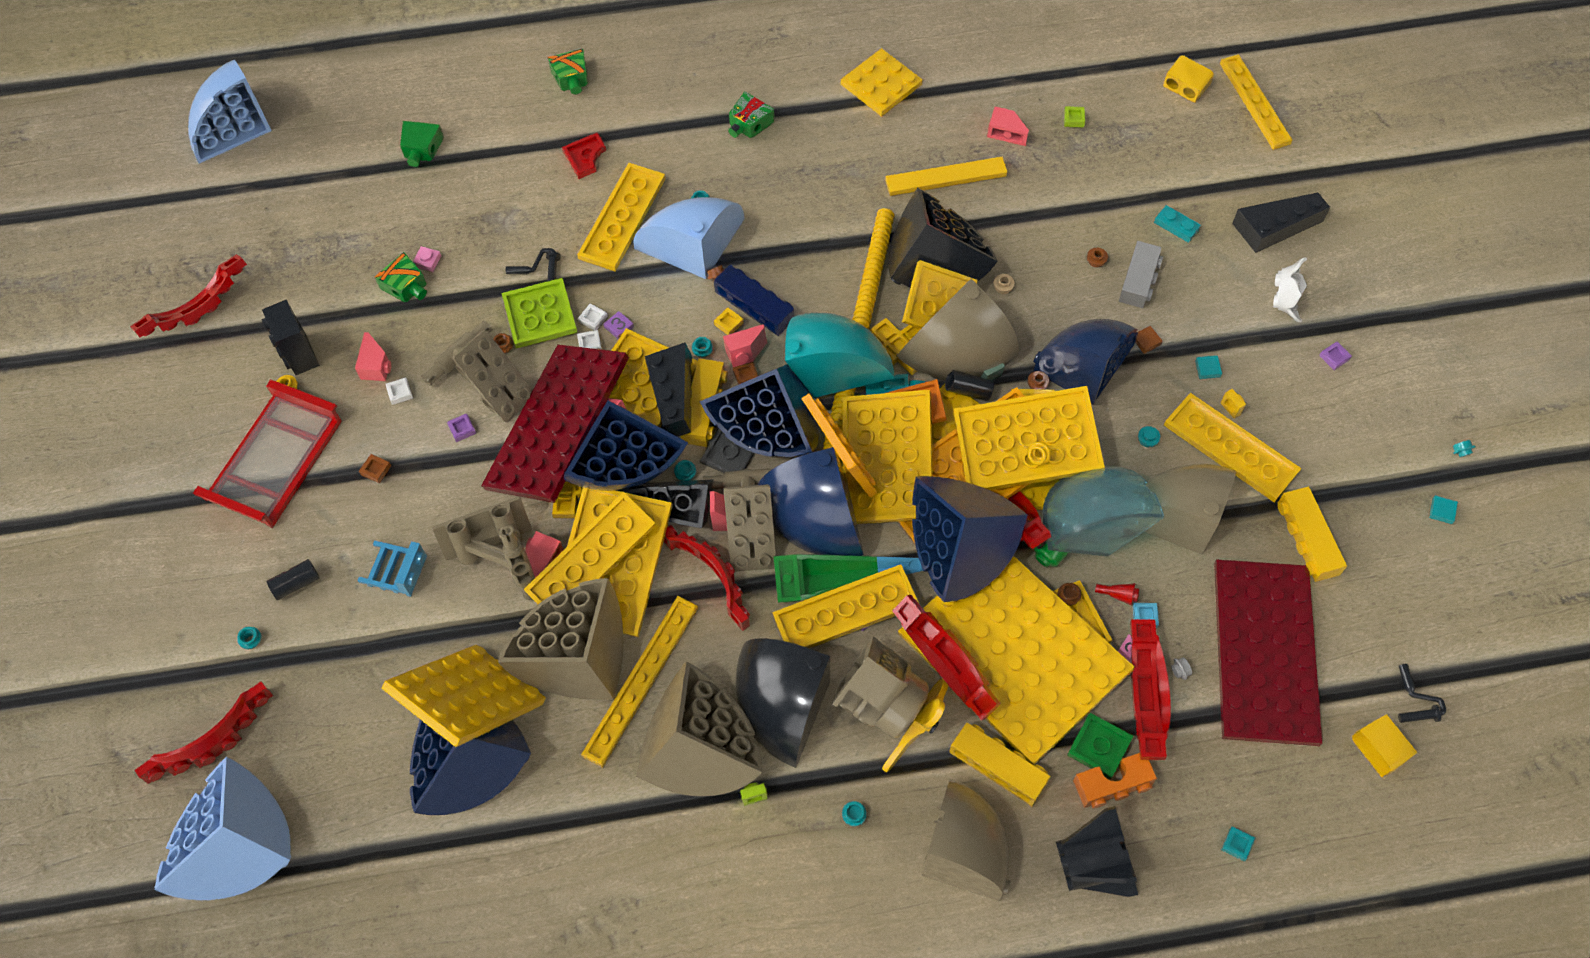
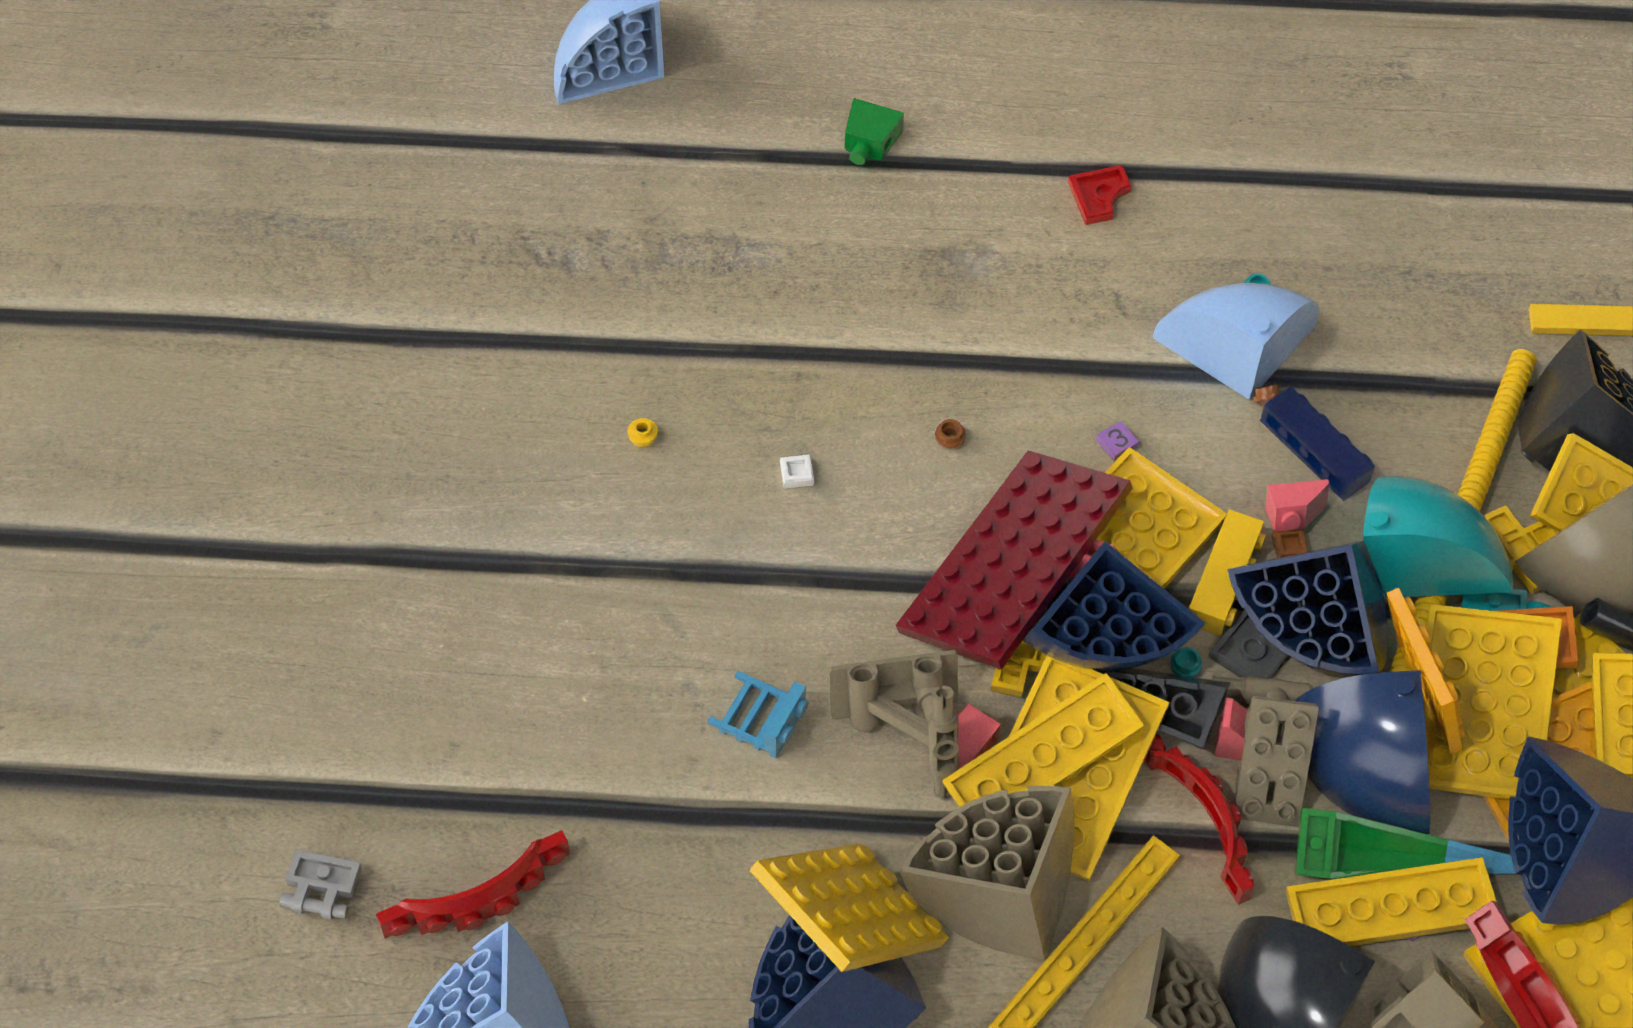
camera: 10 degrees right, 5 degrees down
(95, 748) = (320, 874): none -> light grey plate
(204, 302) = (540, 298): red piece -> none
(245, 633) = (545, 760): teal plate -> none
(274, 455) = (615, 523): clear piece -> none
(289, 338) = (662, 368): black brick -> none
(293, 579) = (619, 701): black pin -> none
(372, 360) = (767, 422): coral slope -> none
(375, 468) = (751, 571): dark orange plate -> none
(402, 279) = (822, 318): torso -> none
(427, 259) = (858, 296): bright pink plate -> none
(461, 427) = (877, 539): medium lavender tile -> none
(488, 368) = (931, 459): dark tan plate -> none
(539, 313) = (1008, 401): lime plate -> none
(551, 255) = (1035, 326): black piece -> none
(569, 70) = (1094, 71): torso -> none
(589, 340) = (1073, 452): white tile -> none
(592, 317) = (1081, 422): white tile -> none
(621, 217) = (1141, 289): yellow plate -> none
(671, 383) = (1188, 536): black wedge -> none
(702, 342) = (1236, 488): teal plate -> none
(728, 321) = (1276, 466): yellow plate -> none
(750, 116) = (1345, 183): green torso -> none
(881, 82) = (1541, 169): yellow plate -> none

